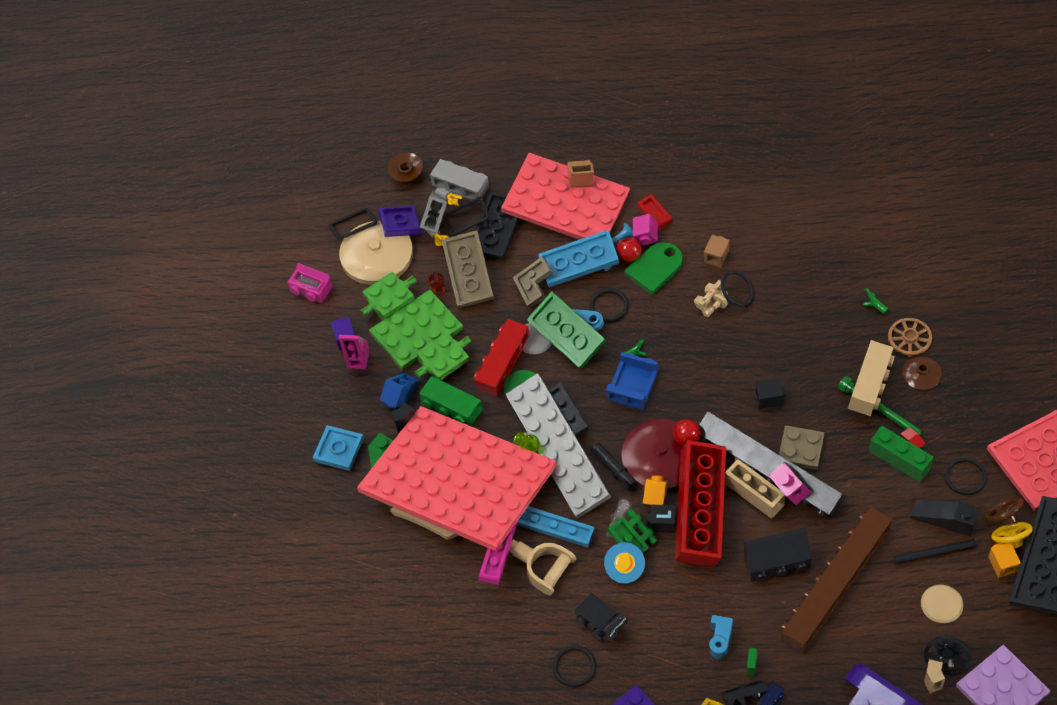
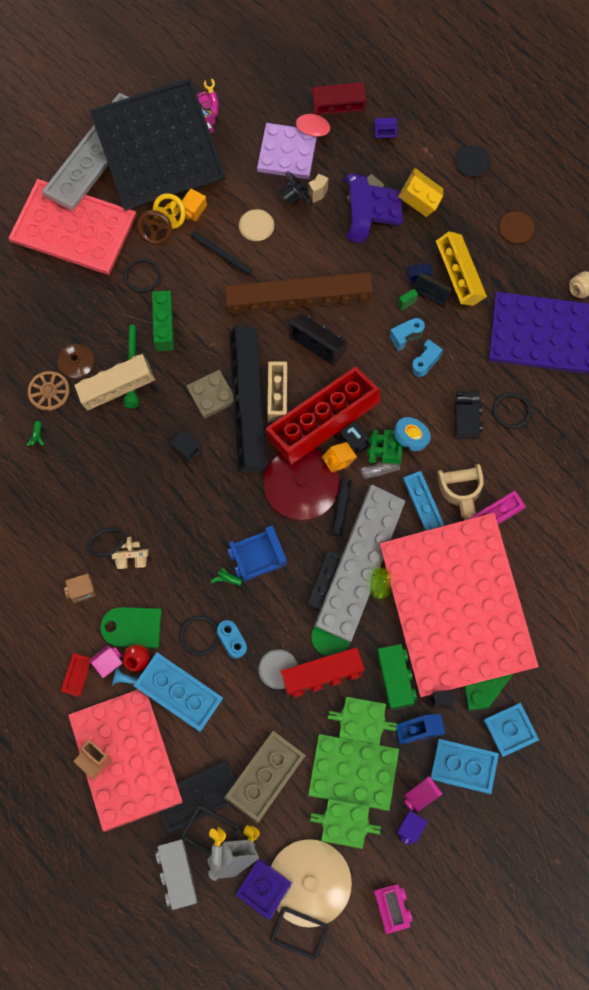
camera: 140 degrees left, 15 degrees up
(346, 398) = (464, 766): none -> dark azure plate
(405, 161) = (194, 950): reddish brown dish -> none
(436, 281) = (295, 792): clear red piece -> none
(528, 281) = (232, 715): dark tan plate -> none
(566, 330) = (256, 641): plate -> none
(679, 626) = (426, 361): none -> dark azure leg
(686, 430) = (275, 467): red piece -> none
(789, 483) = (259, 357): torso -> none
(912, 437) = (143, 323): red piece -> none
(946, 514) = (188, 262): black slope -> none

